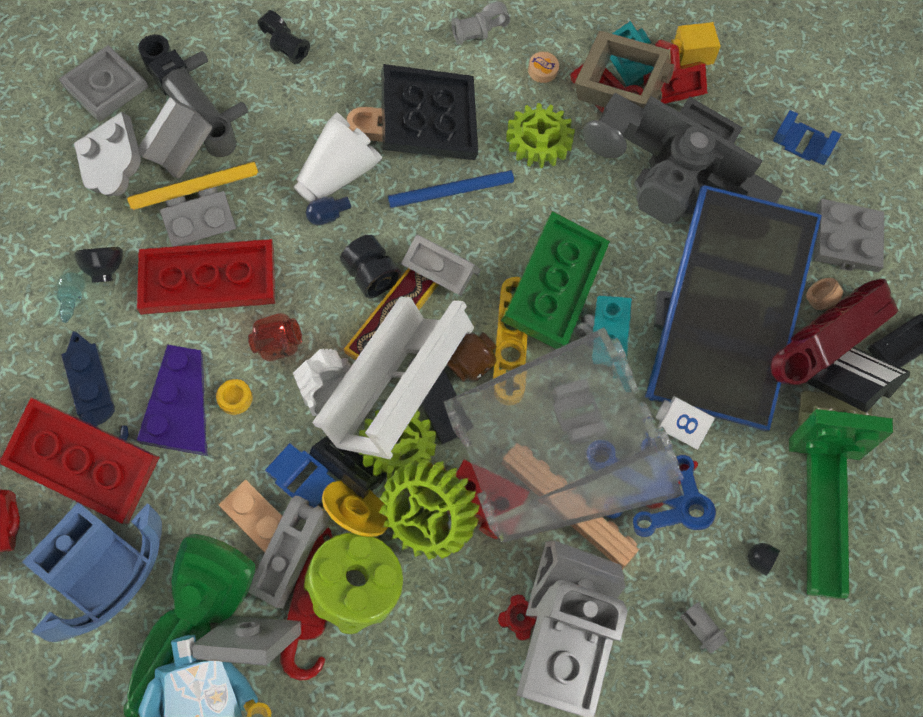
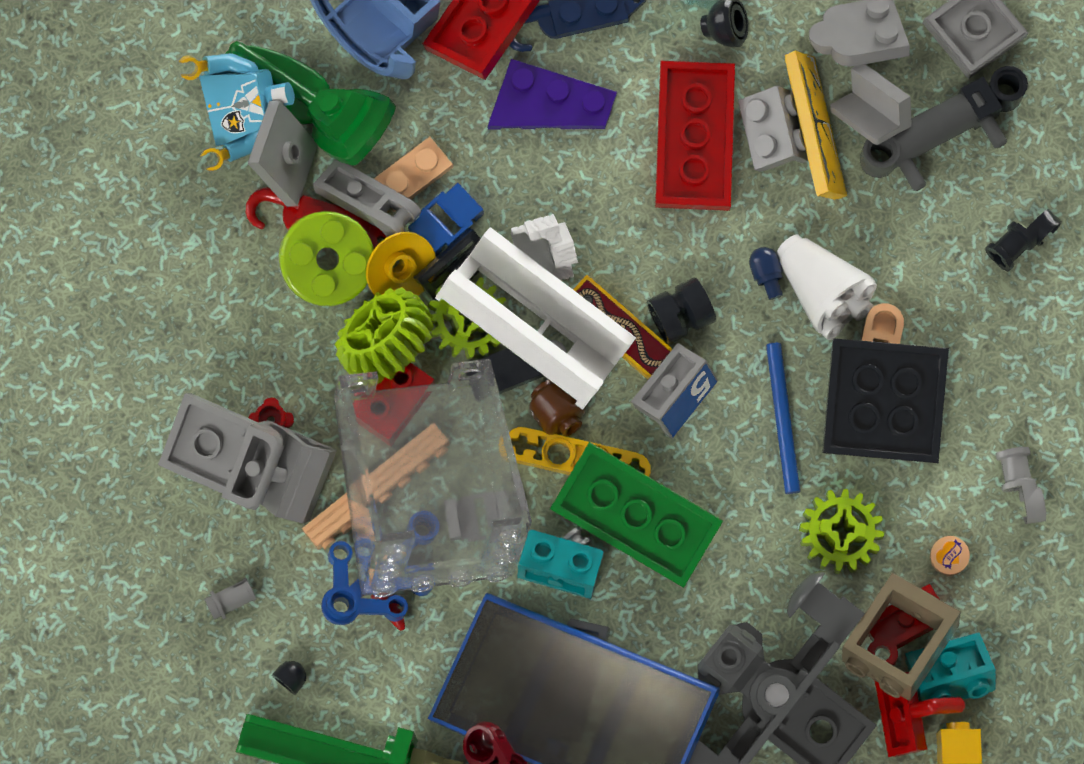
camera: 100 degrees right, 10 degrees up
(234, 396) = (548, 158): yellow tile -> none
(275, 337) = (608, 203): clear red head -> none
(684, 421) = (446, 621): white brick -> none

